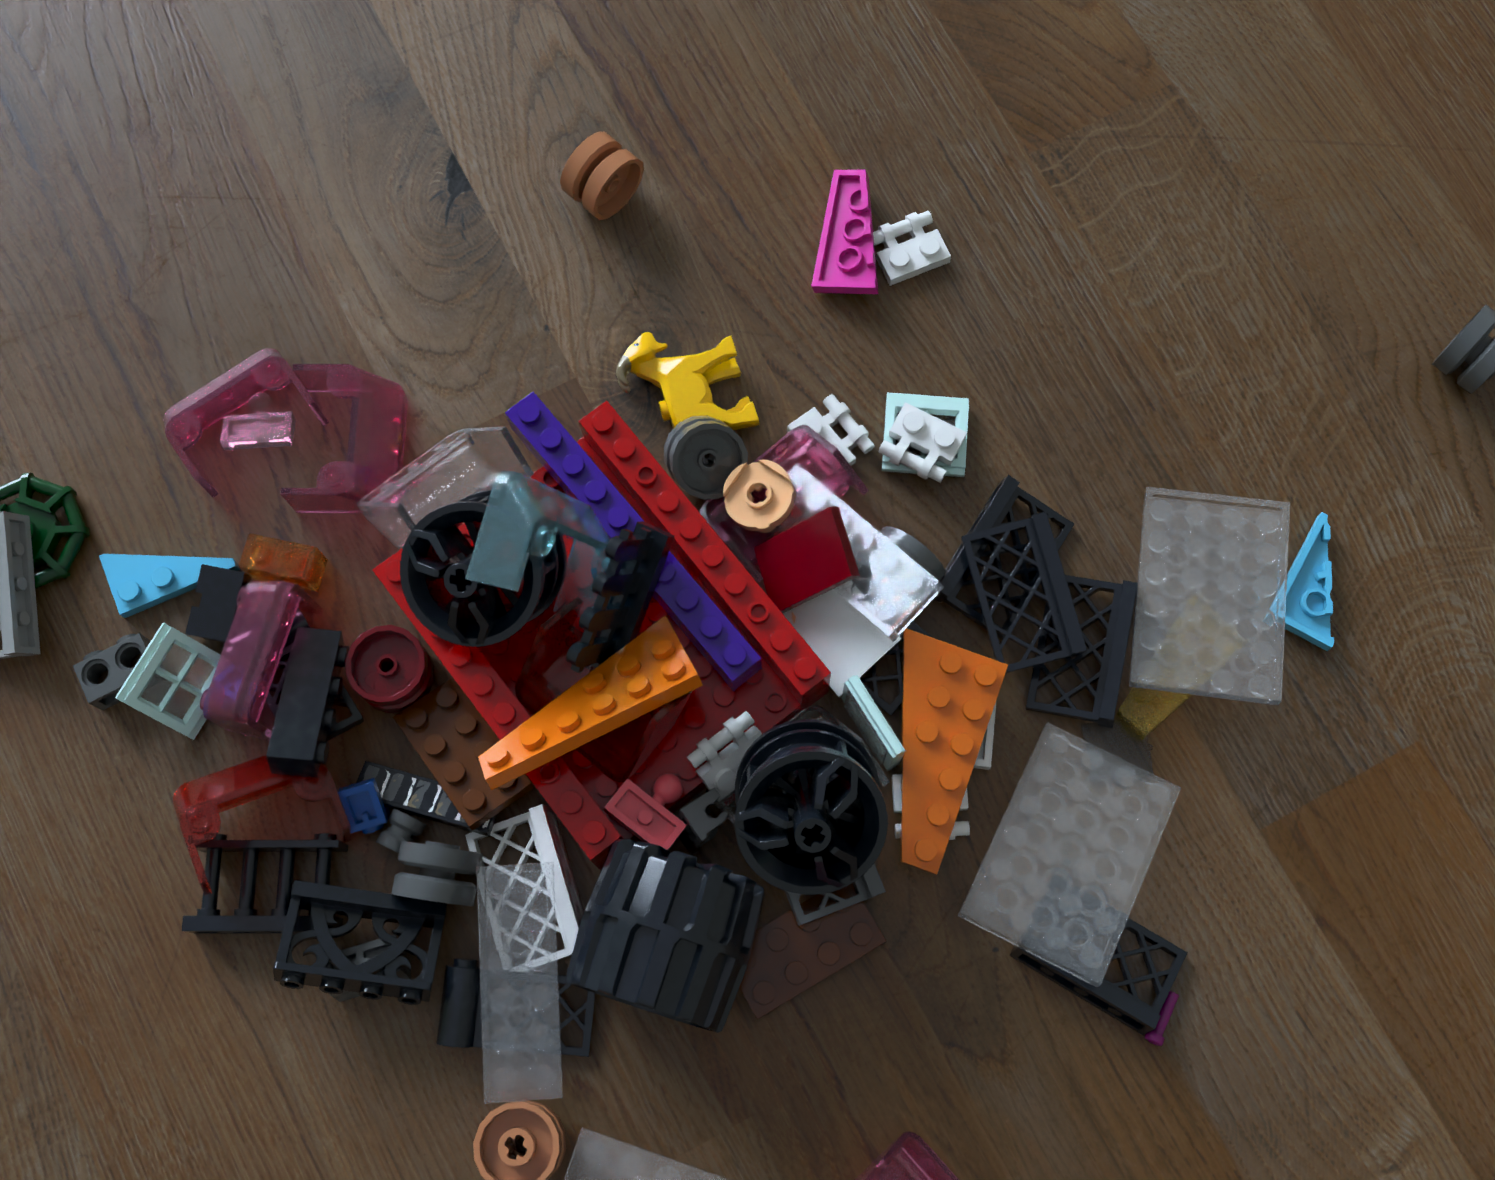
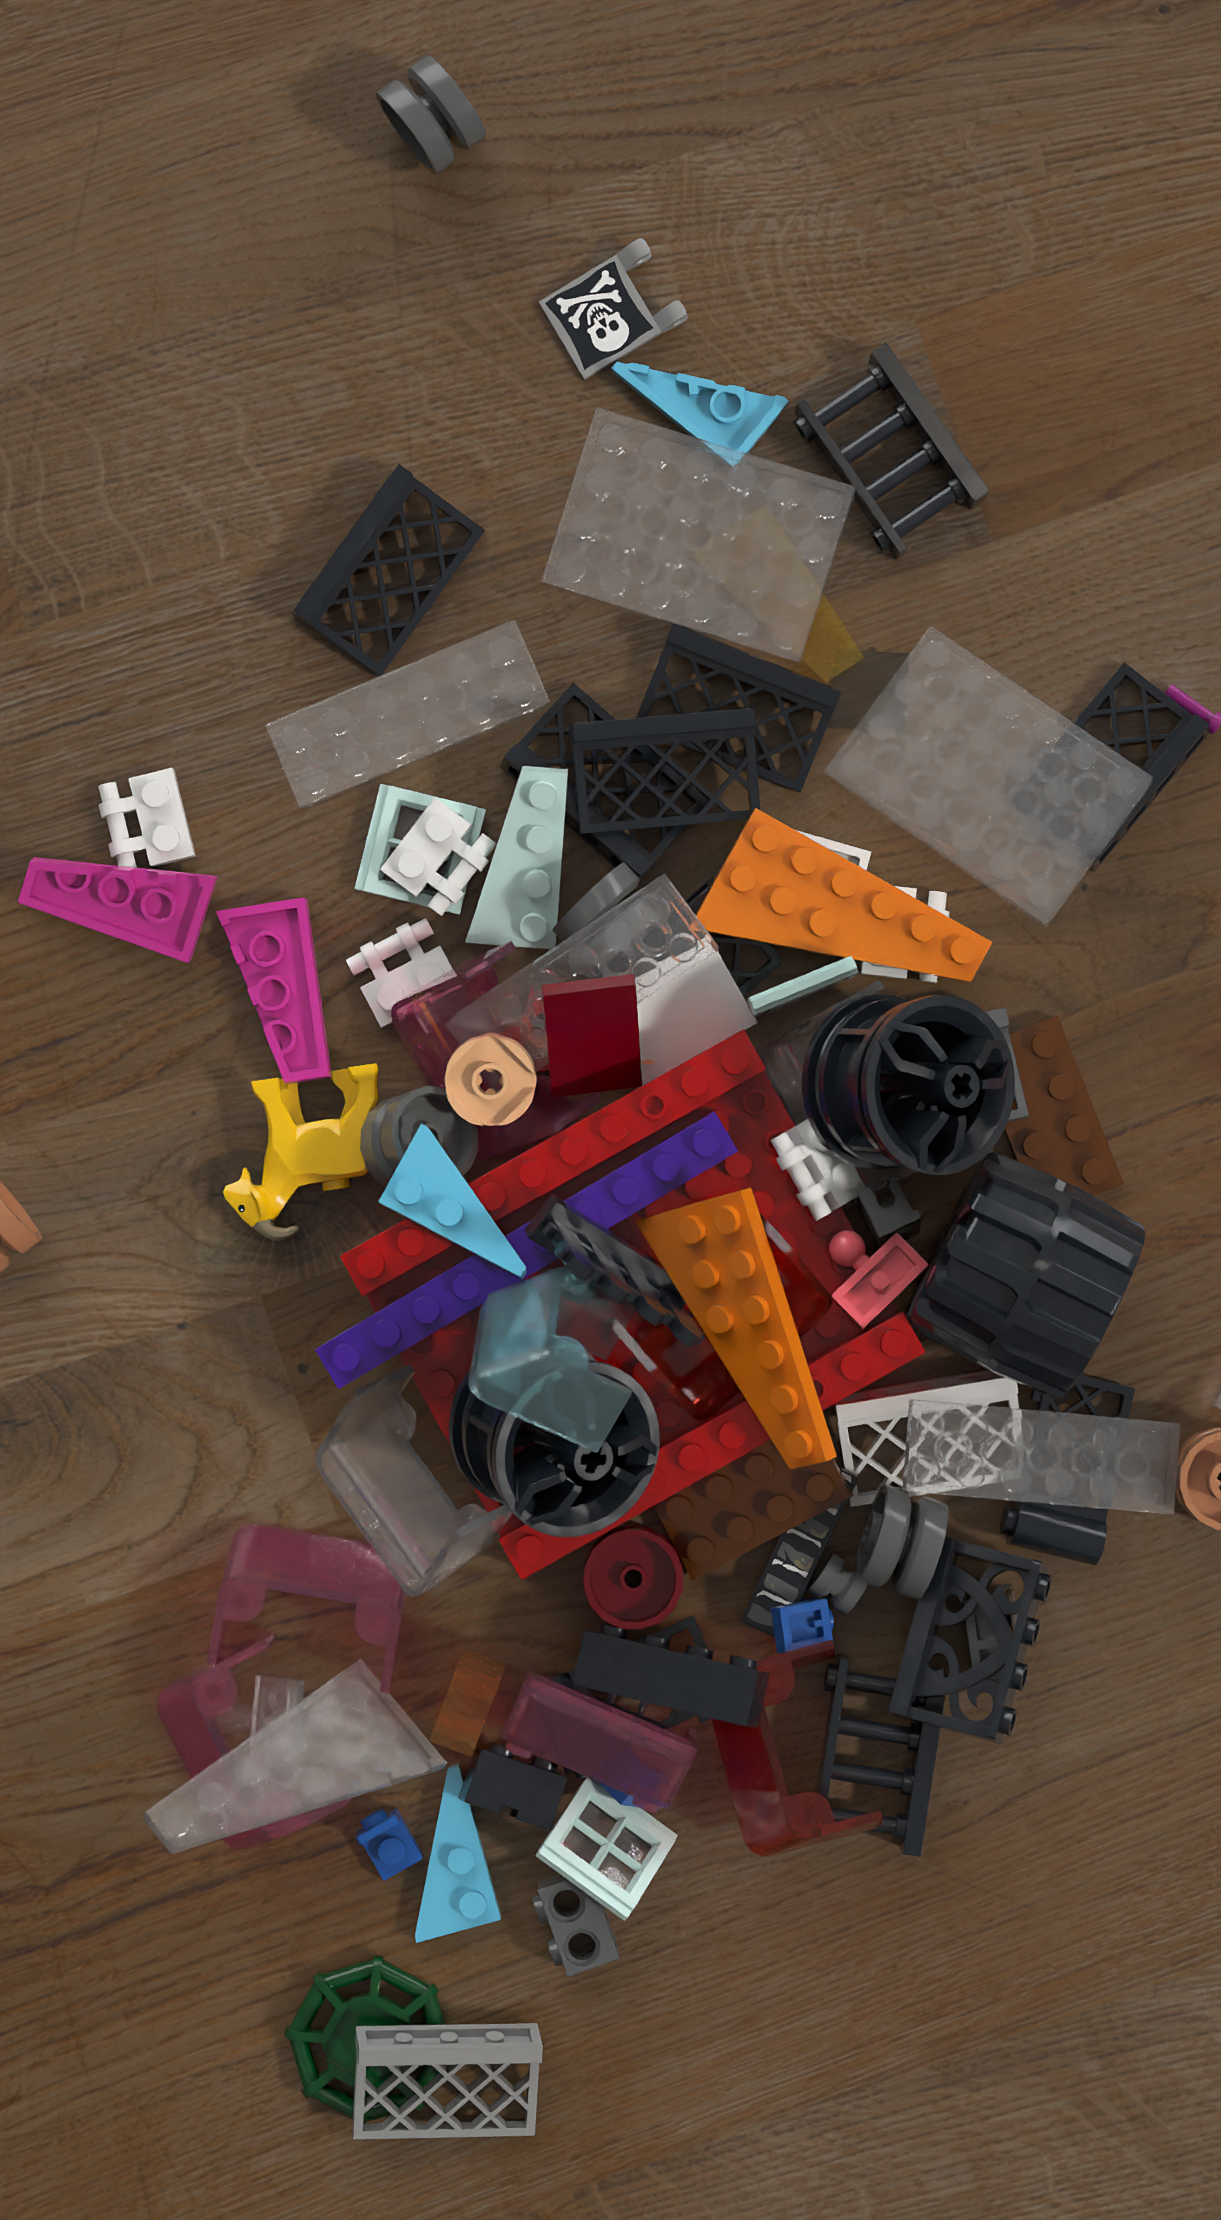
camera: 85 degrees left, 15 degrees up
(175, 525) = (388, 1842): none -> blue bracket
(227, 446) = (313, 1755): none -> clear wing
(661, 458) = (437, 1197): none -> medium azure wing
(822, 348) = (281, 975): none -> dark pink wing
(932, 505) = (525, 870): none -> light aqua wing
(1025, 410) = (407, 714): none -> clear plate
(1145, 354) = (355, 548): none -> black fence
(1324, 769) = (935, 449): none -> black fence
(1360, 505) = (604, 315): none -> flag

